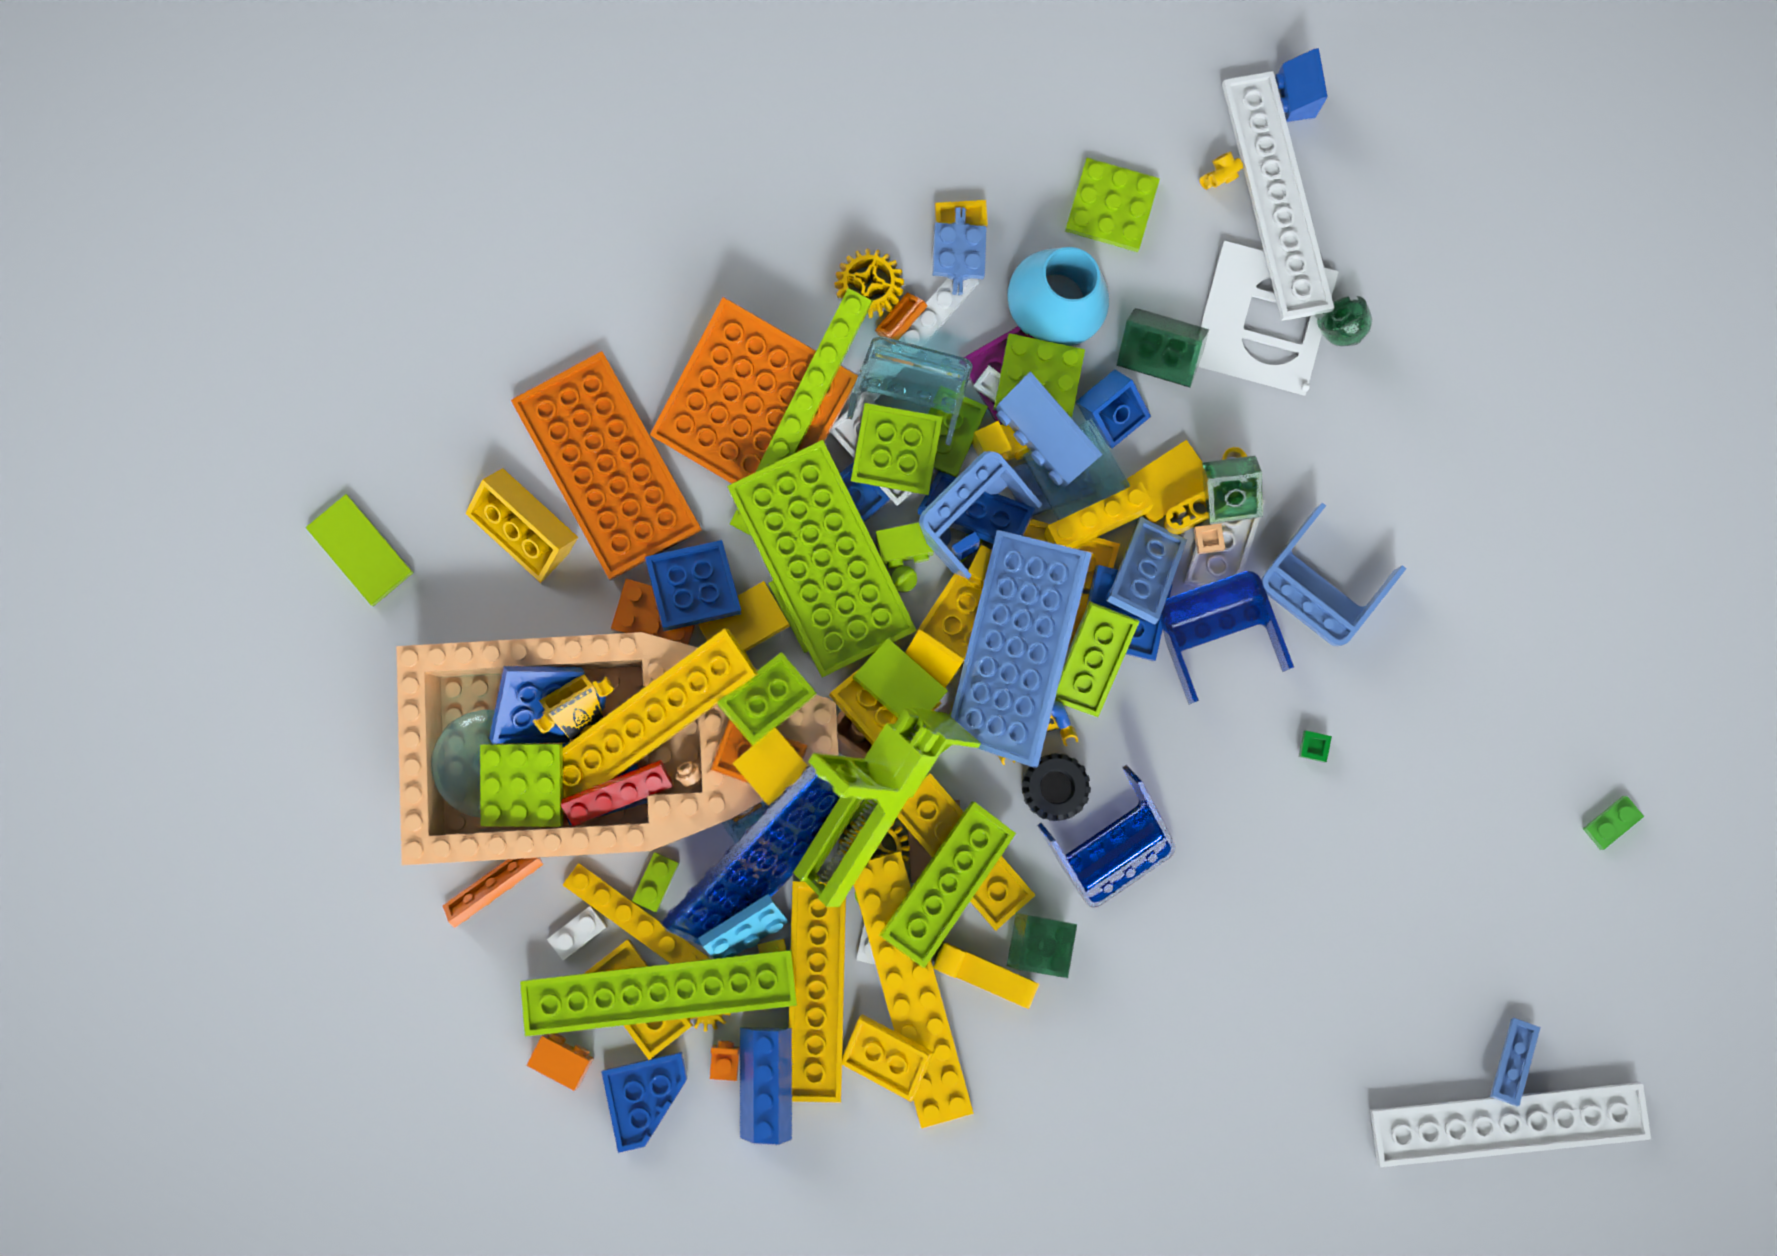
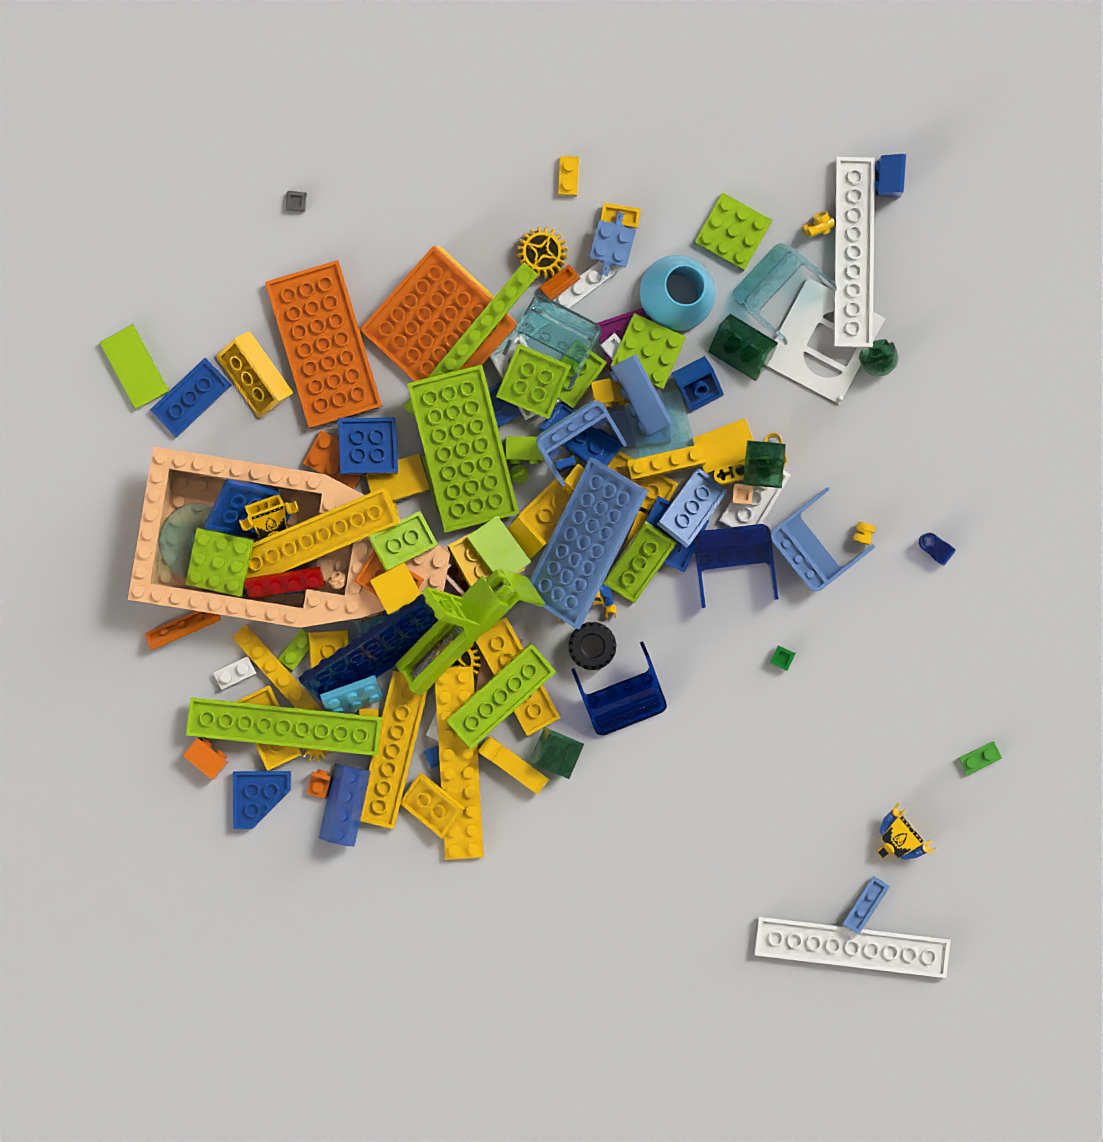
camera: 15 degrees right, 5 degrees up
(443, 574) = (190, 397): none -> blue tile
(531, 289) = (296, 201): none -> flat silver tile
(691, 864) = (325, 644): none -> yellow plate
(873, 988) = (433, 756): none -> blue tile
(881, 180) = (568, 175): none -> yellow plate
(1175, 250) = (768, 278): none -> clear light blue windscreen
(1382, 555) = (864, 533): none -> yellow wheel
(1486, 554) = (939, 550): none -> clear blue piece
(1539, 957) = (901, 837): none -> torso

